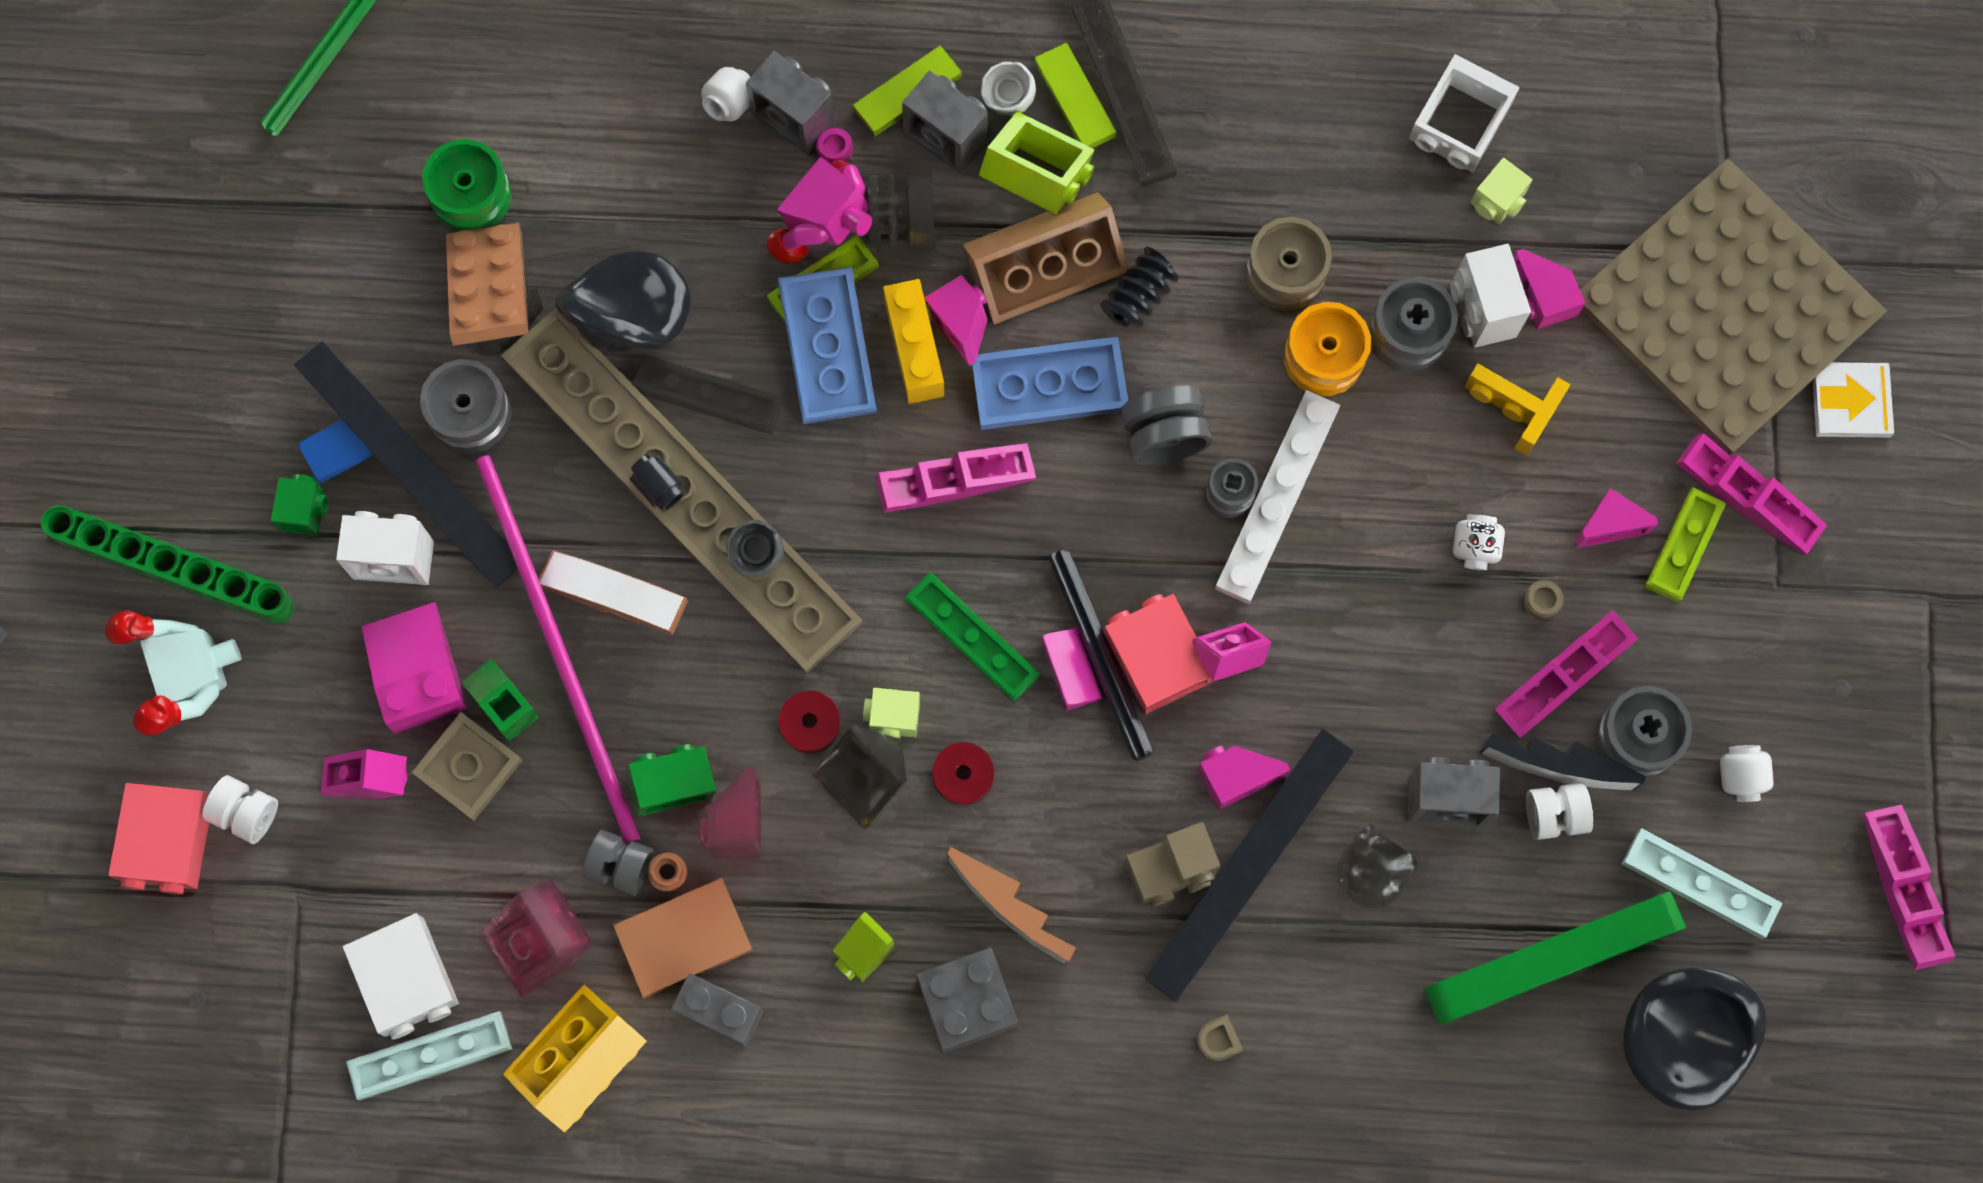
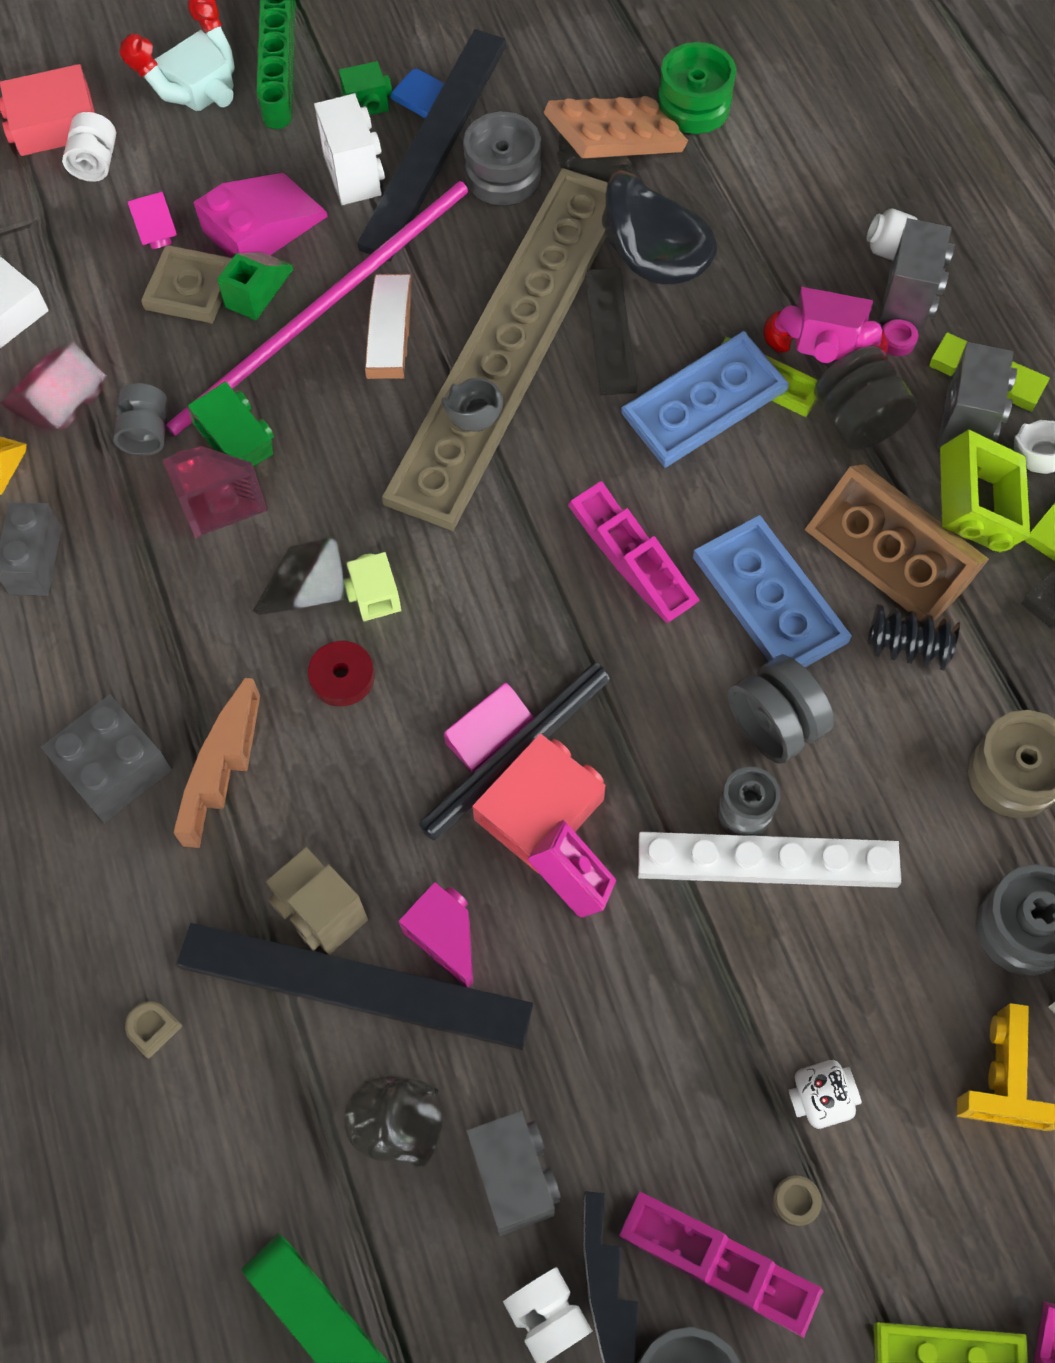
camera: 70 degrees right, 10 degrees down
(657, 482) = (501, 310): black brick -> none
(661, 861) = (143, 459): nougat plate -> none
(683, 938) = (94, 502): nougat tile -> none
(809, 739) = (339, 509): dark red piece -> none
(863, 949) = (129, 645): lime slope -> none
(914, 341) = (746, 462): yellow brick -> none
(960, 316) = (791, 490): dark pink slope -> none
(972, 637) = (481, 630): green tile -> none
(1327, 348) = (953, 839): light orange wheel -> none
(1615, 520) = (932, 1248): dark pink slope -> none

